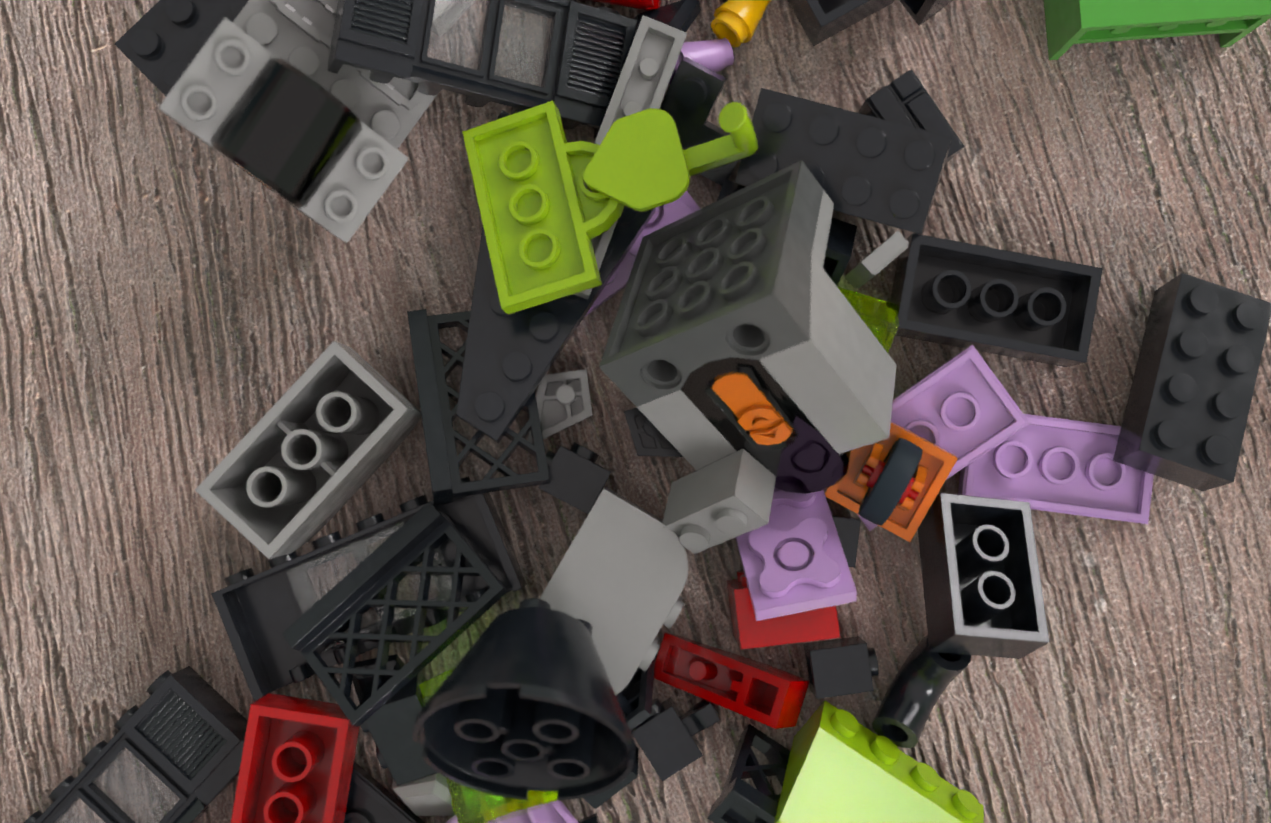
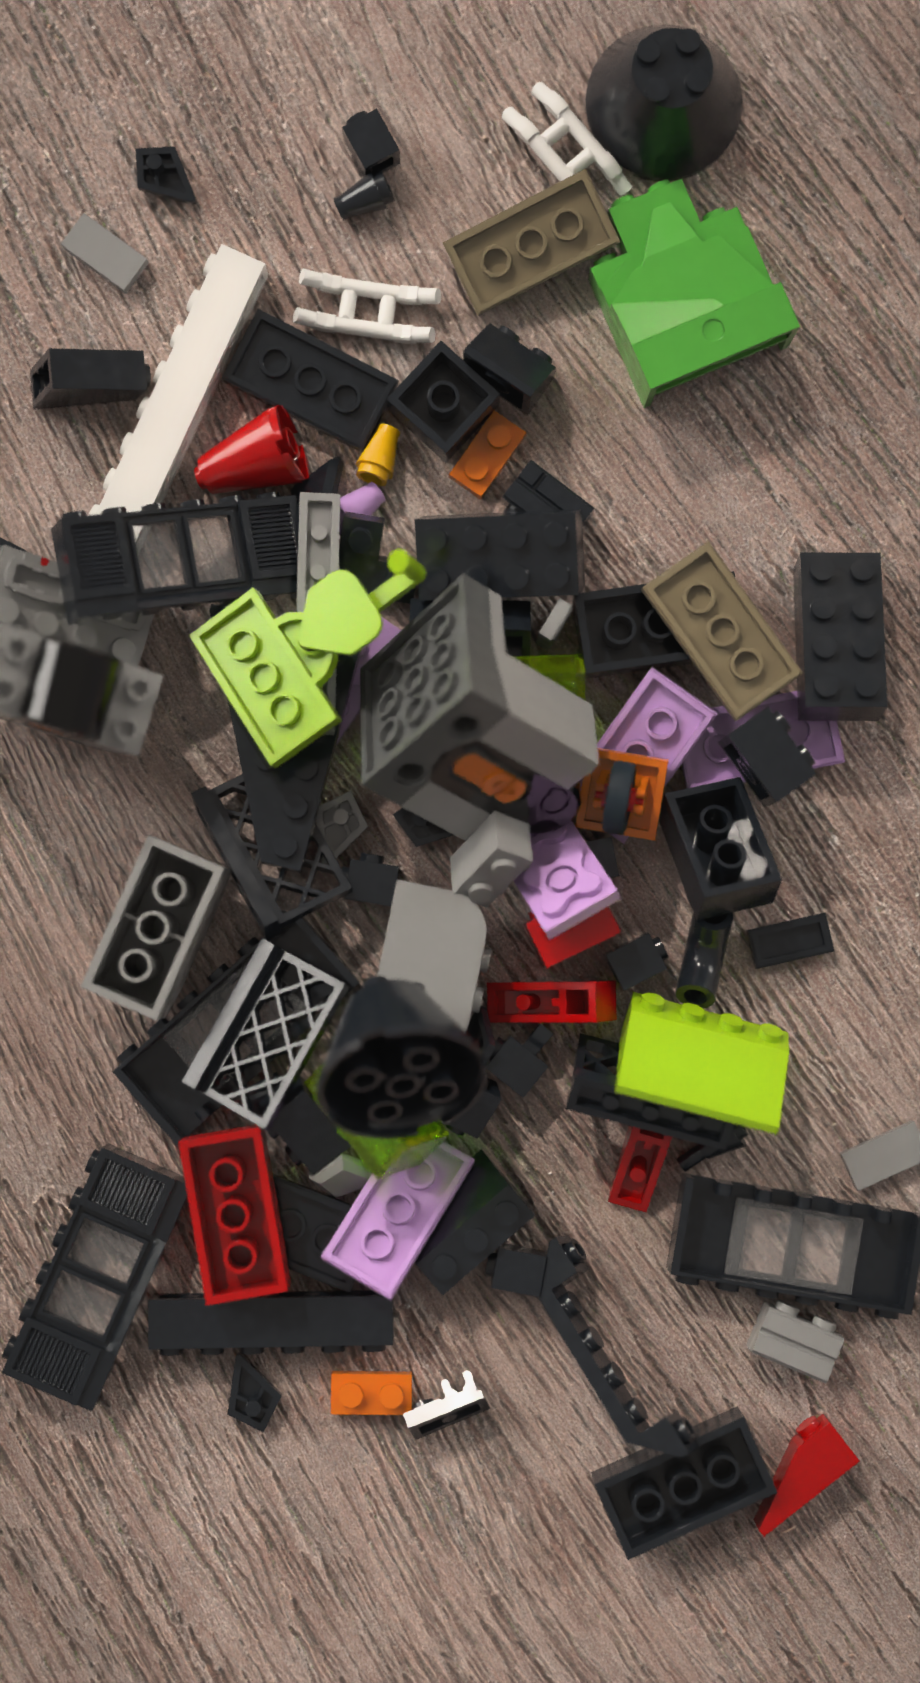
camera: 25 degrees left, 0 degrees up
(861, 52) = (487, 454): none -> orange plate
(1017, 701) = (790, 940): none -> black tile
(1069, 331) = (721, 631): none -> dark tan piece
(1074, 492) = (768, 756): none -> black brick

